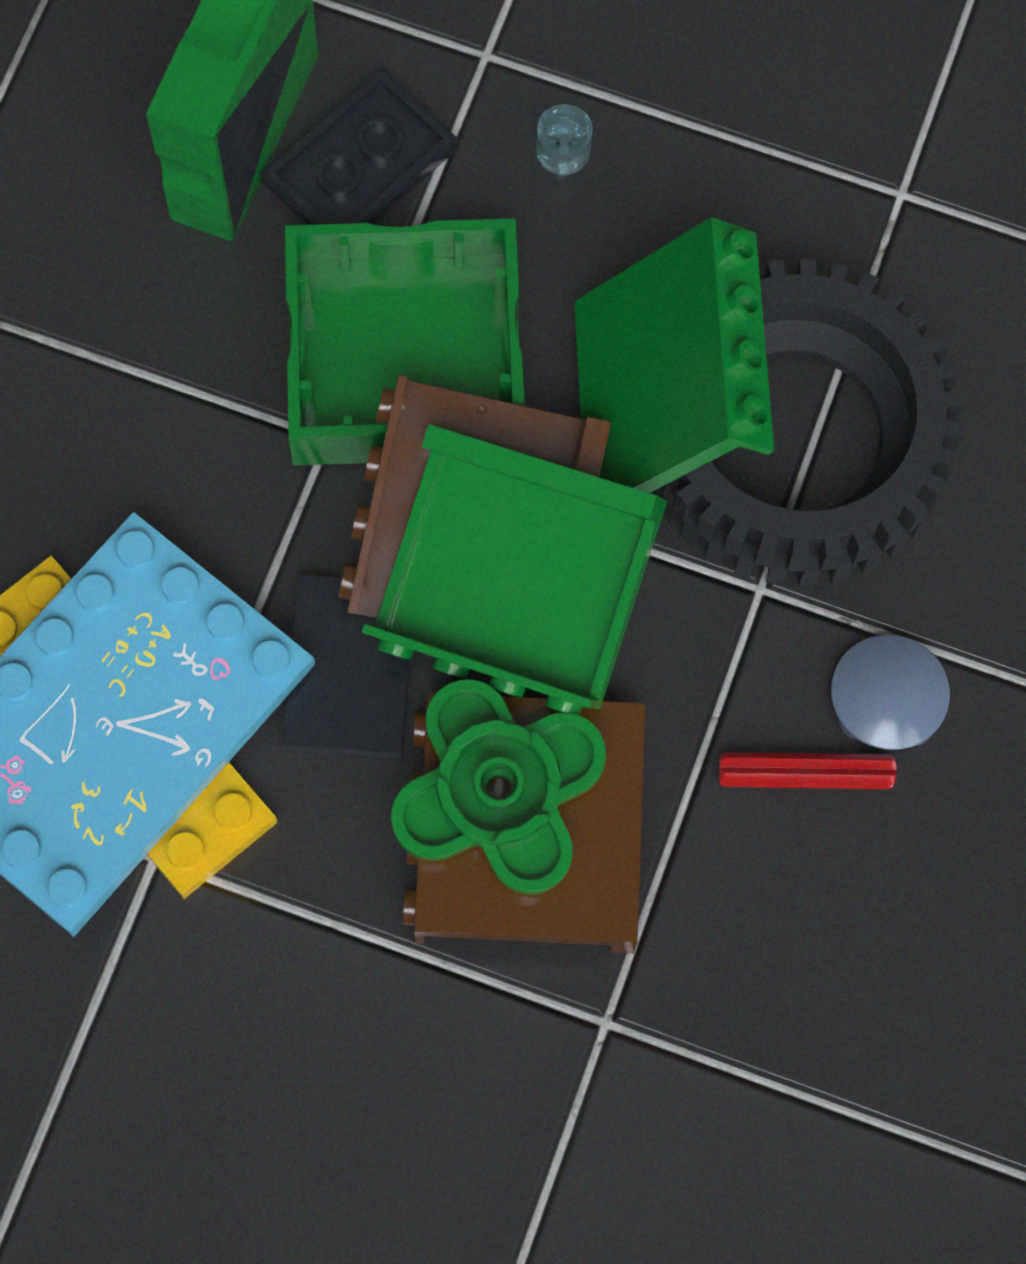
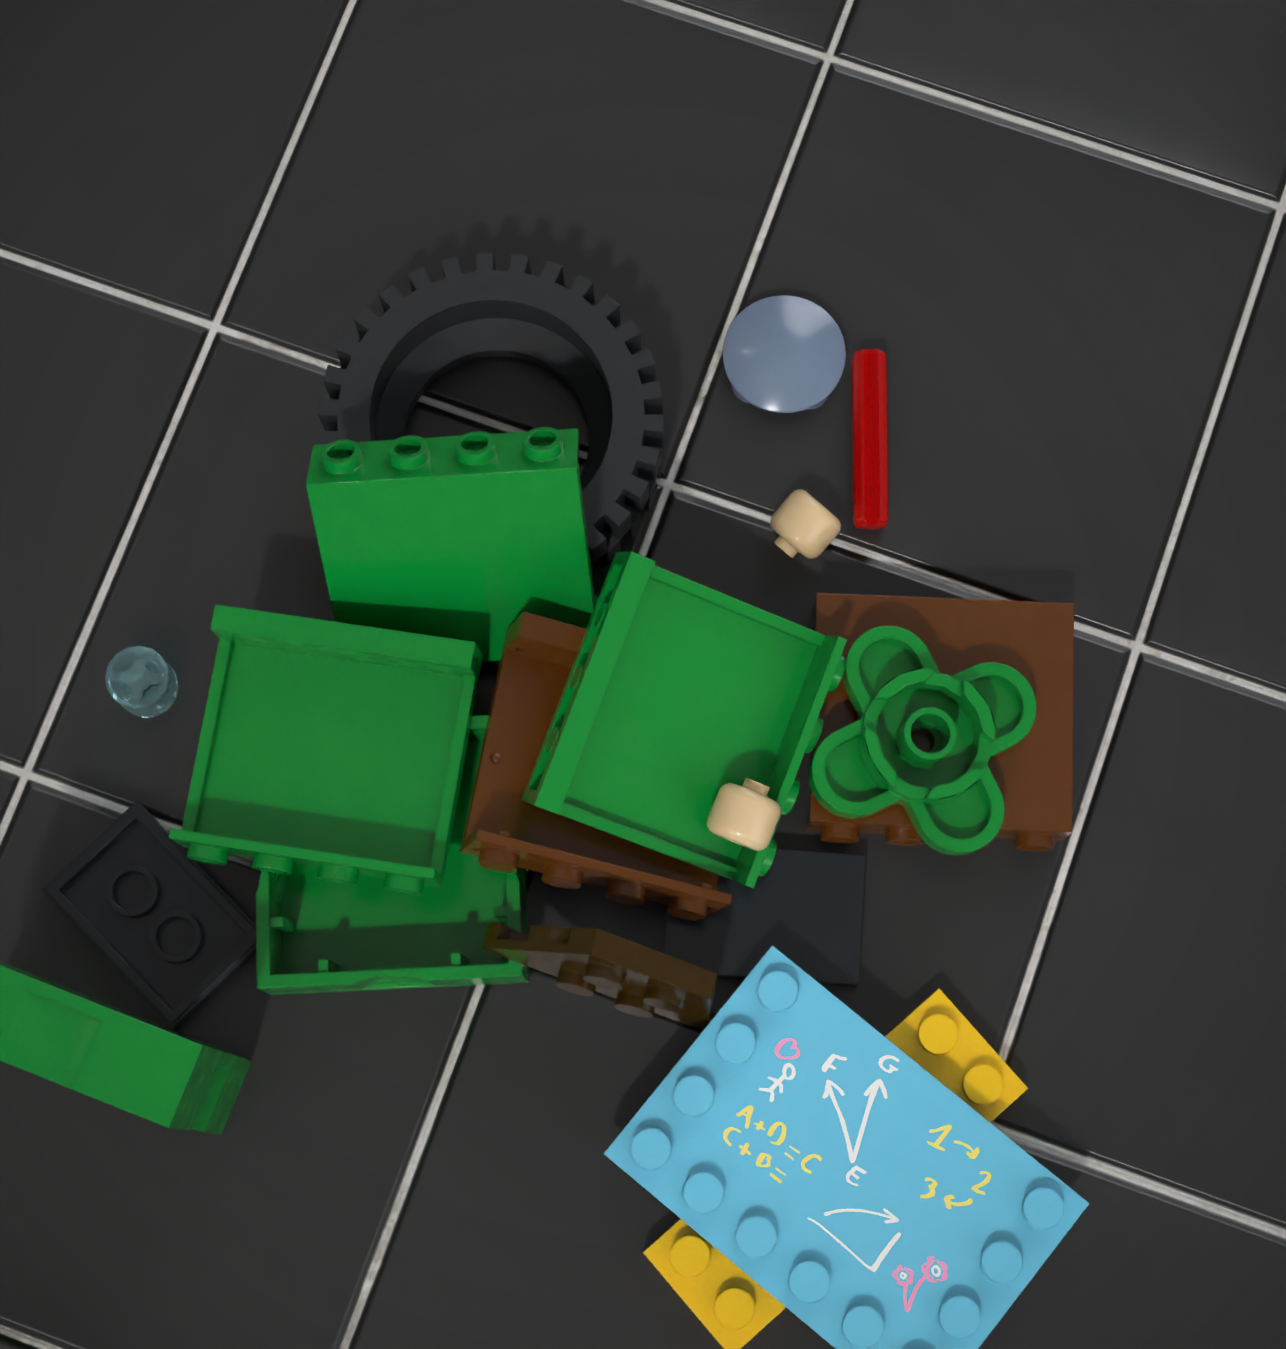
camera: 85 degrees left, 5 degrees up
(289, 493) = (605, 963): none -> dark brown wing
(427, 621) = (744, 814): none -> tan piece
(488, 277) = (331, 749): none -> green panel
(719, 707) = (804, 525): none -> tan piece

